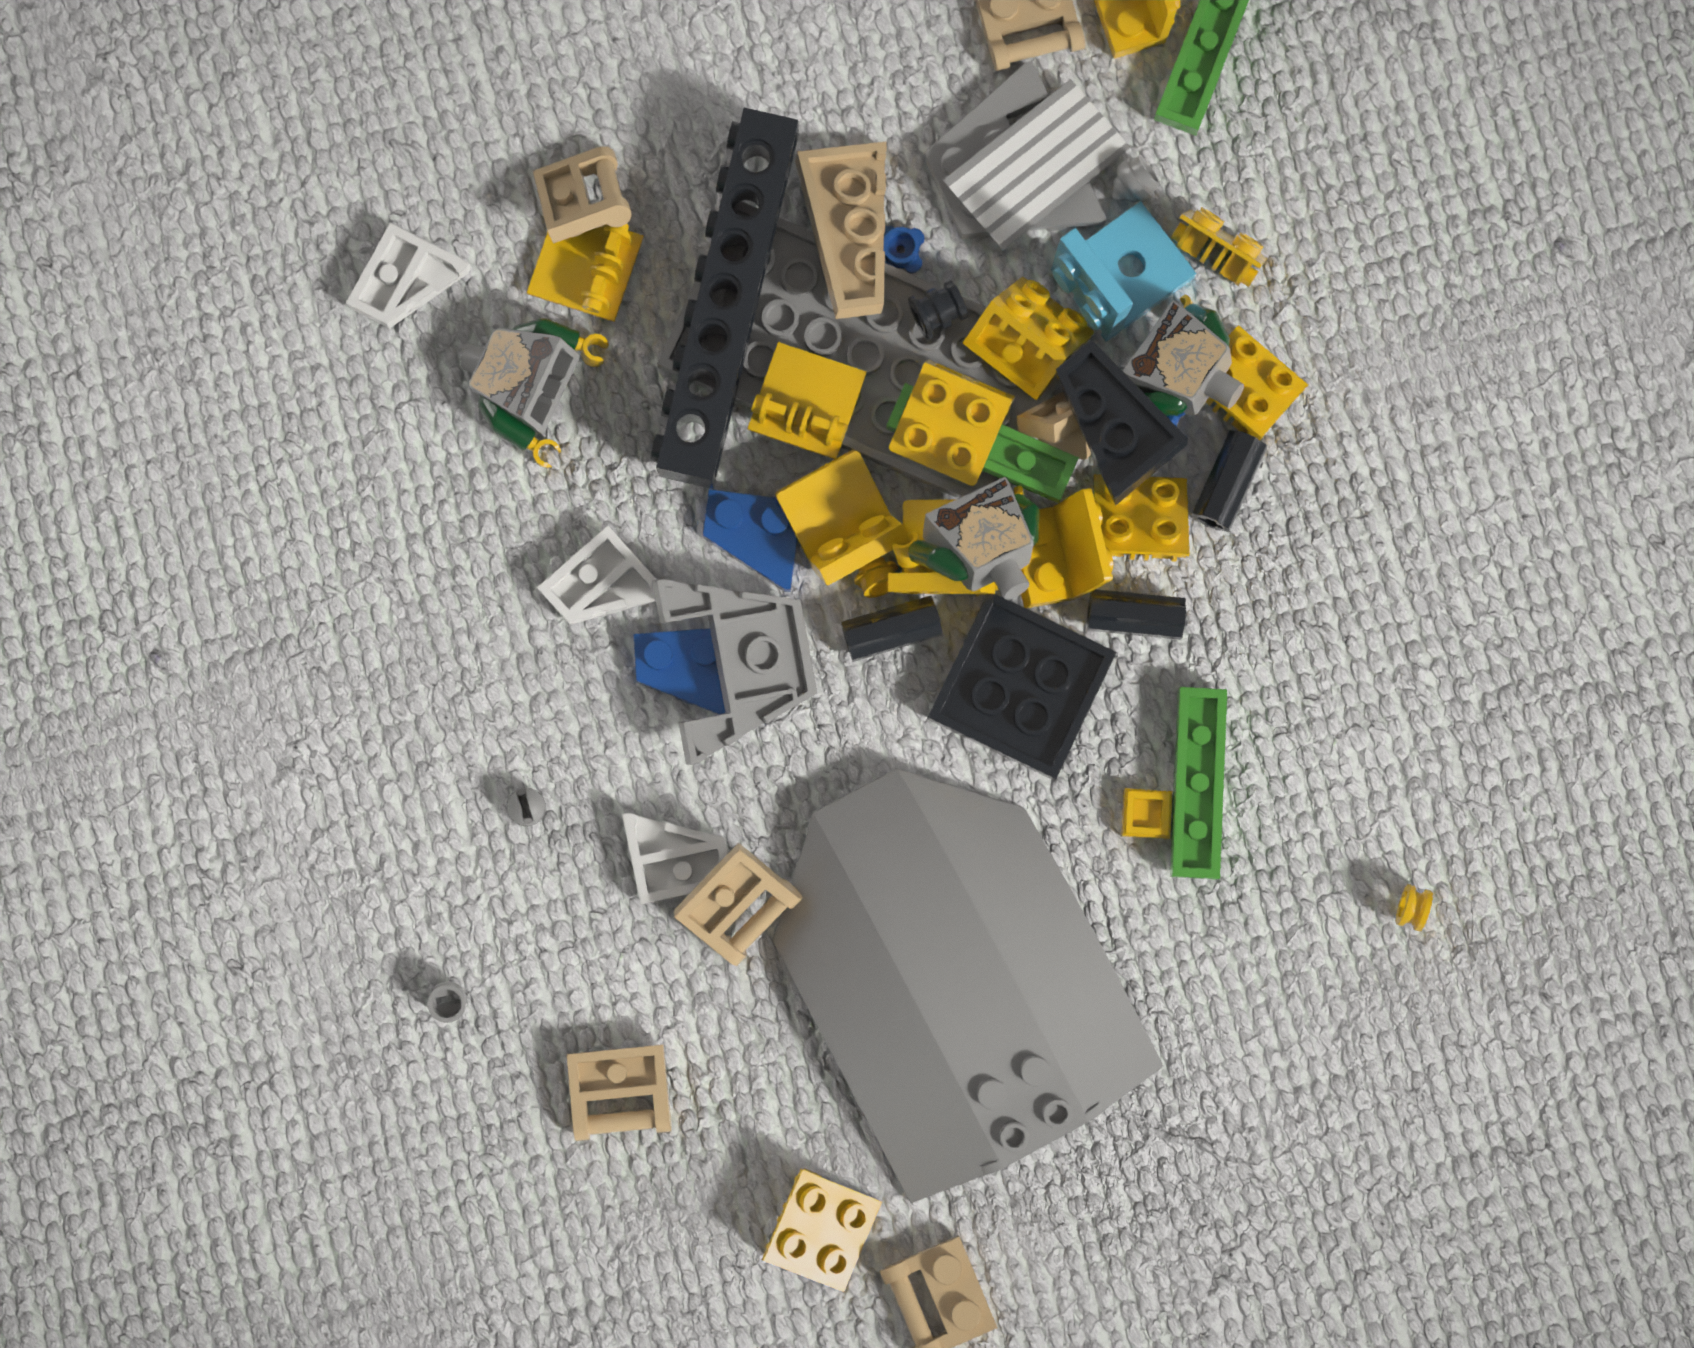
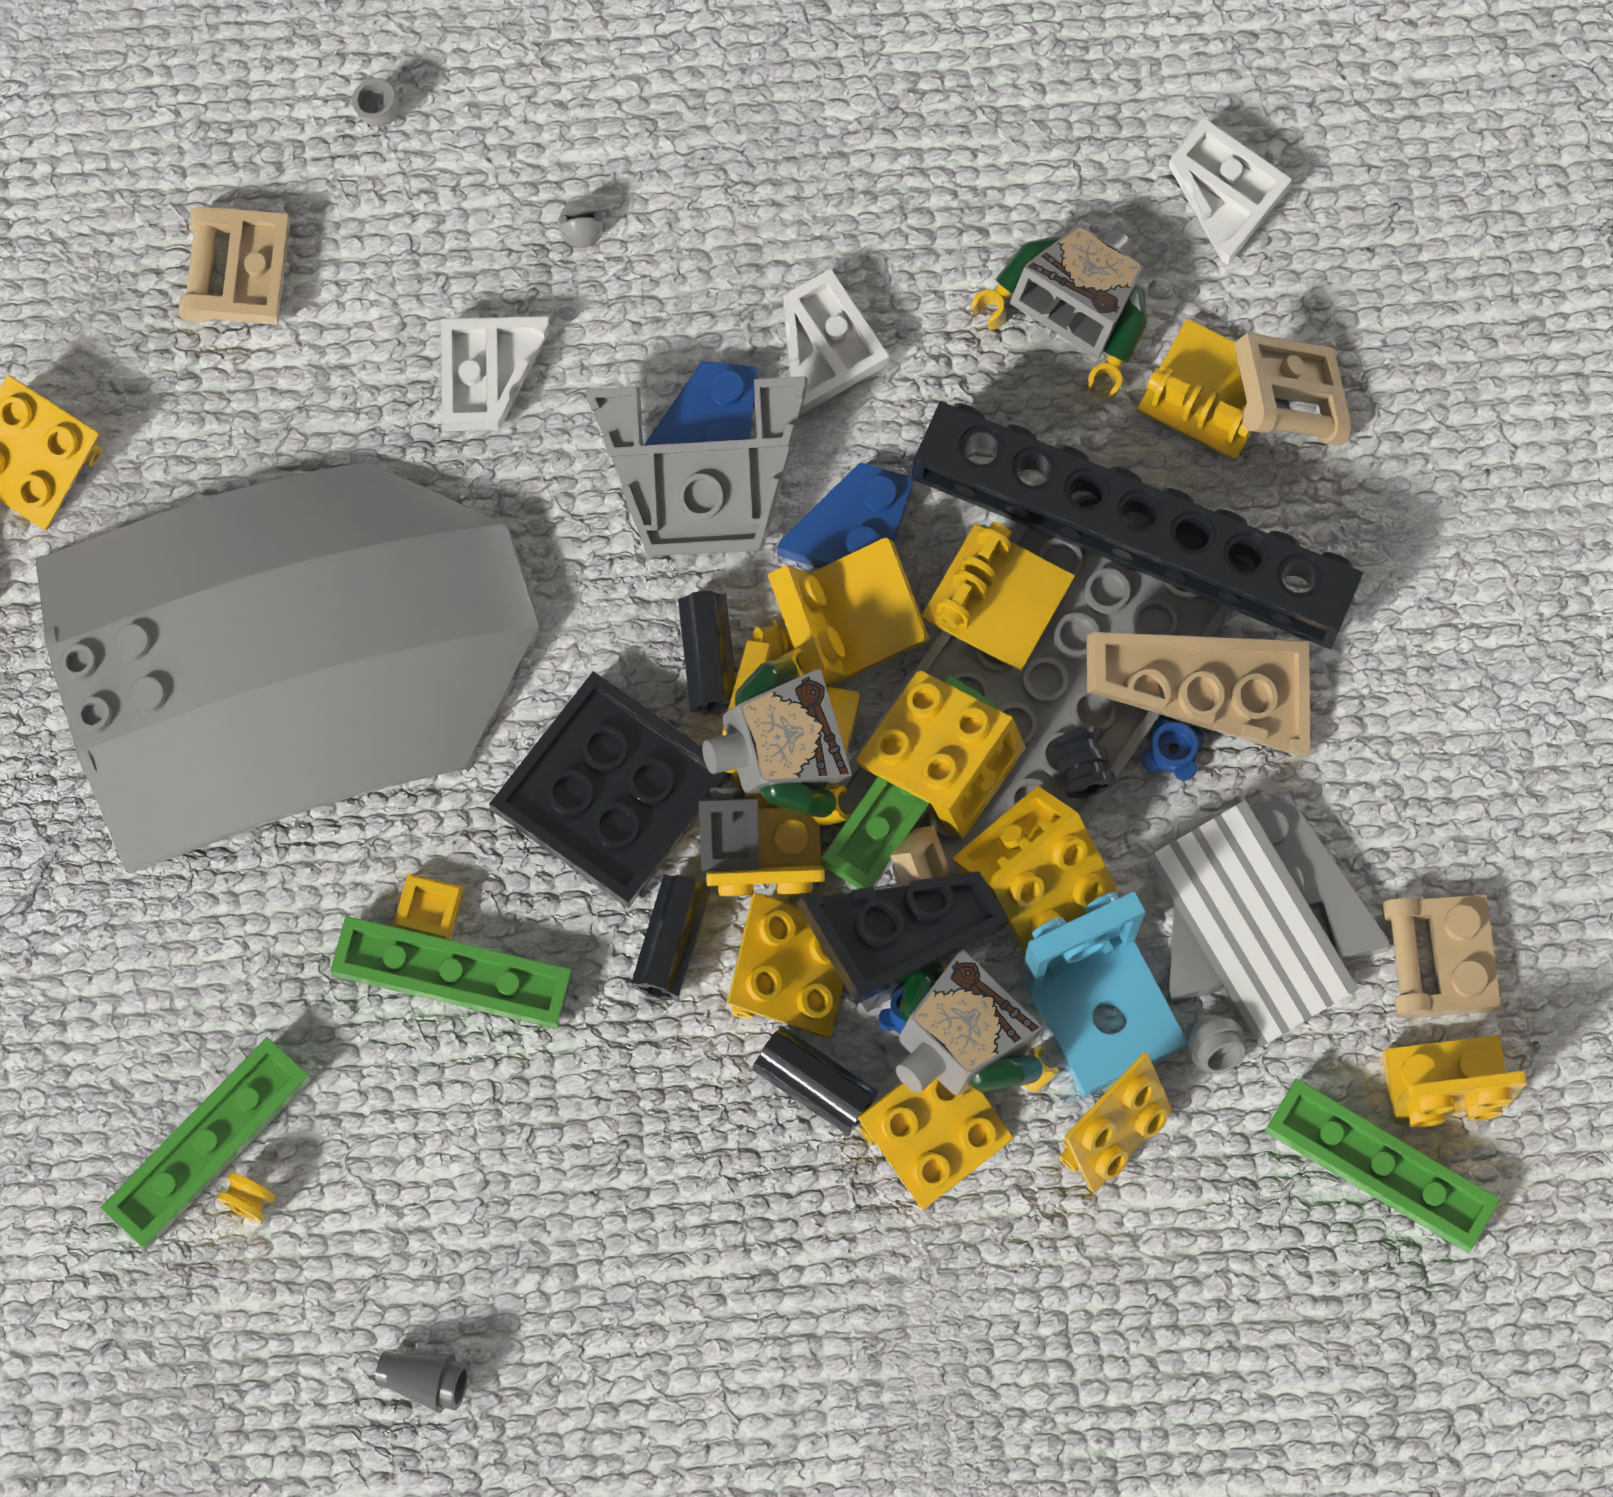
camera: 100 degrees right, 10 degrees down
(726, 895) = (429, 407): tan plate -> none
(1053, 578) = (728, 830): none -> dark grey bracket
(1376, 949) = (205, 1143): none -> bright green plate
(1524, 738) = (425, 1378): none -> dark grey cone

